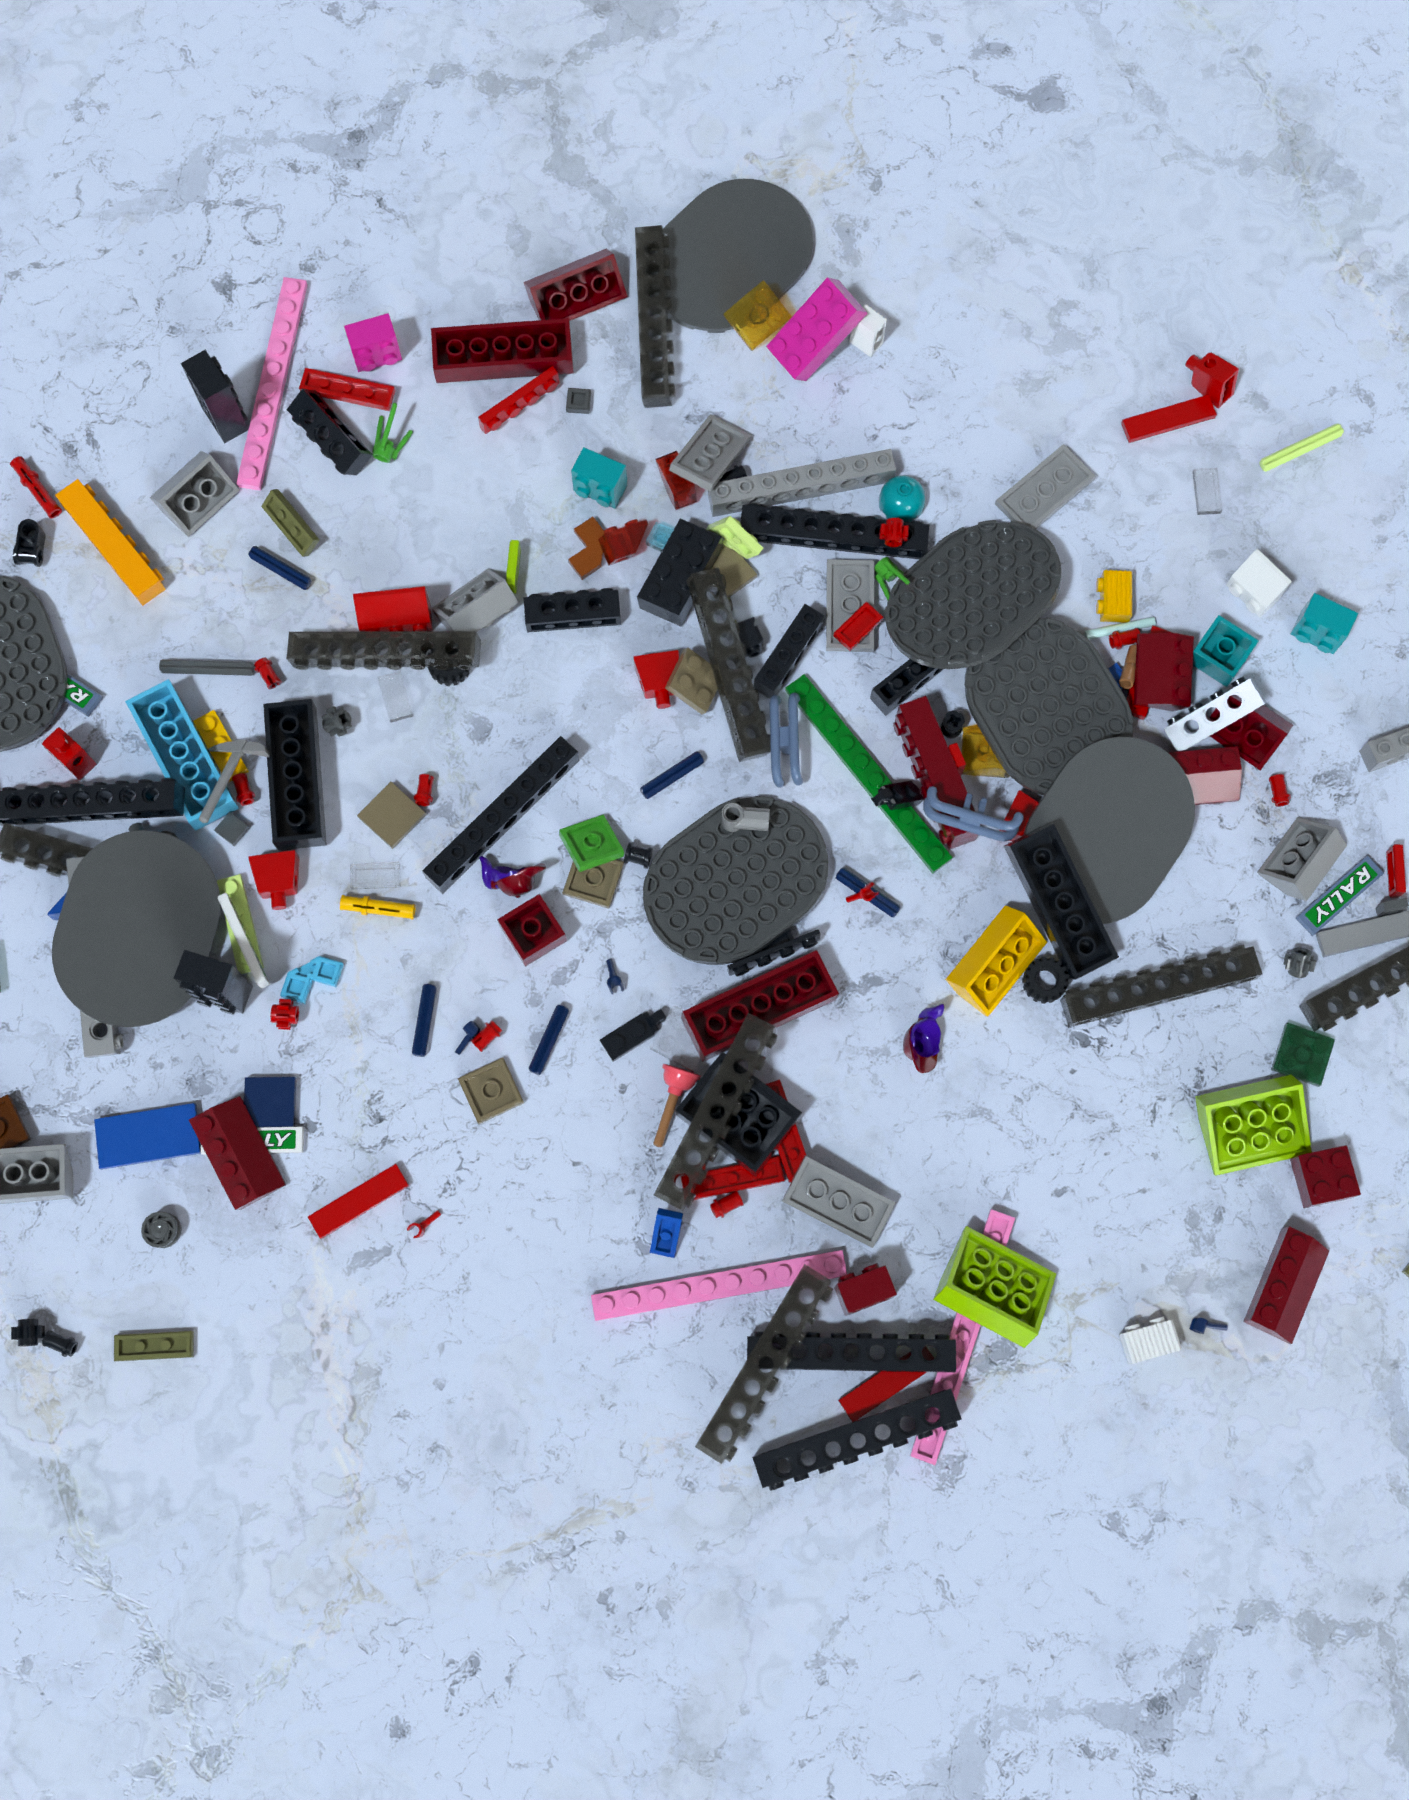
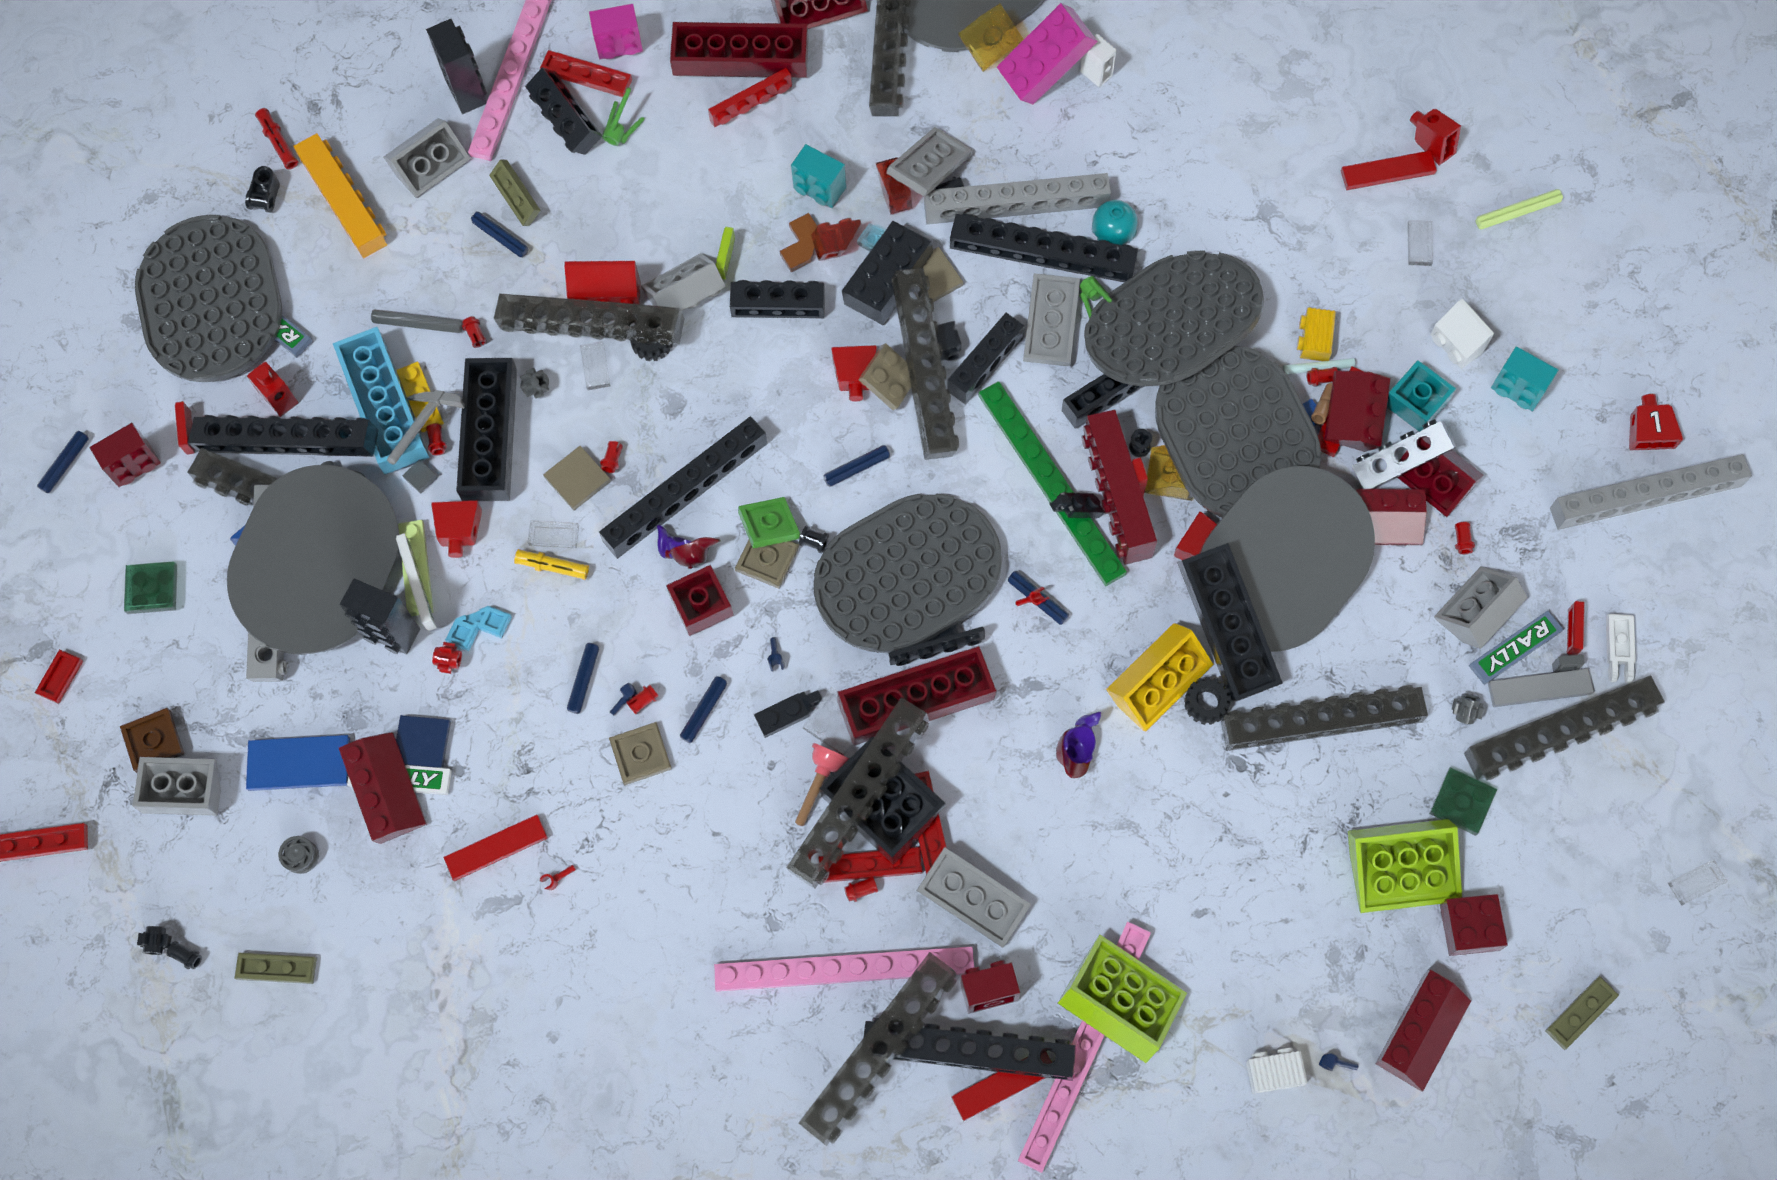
camera: 10 degrees right, 5 degrees down
(578, 400) = (808, 103): dark grey tile -> none
(666, 1232) = (797, 909): blue slope -> none
(736, 537) = (946, 243): yellowish green wing -> none
(747, 819) = (925, 512): light grey piece -> none
(772, 1478) = (871, 1149): black brick -> none
(785, 739) = (971, 440): sand blue piece -> none
(858, 626) = (1057, 339): red tile -> none
(894, 532) = (1101, 251): red gear -> none
(970, 820) = (1146, 532): sand blue piece -> none
(1045, 488) = (1258, 225): light grey plate -> none

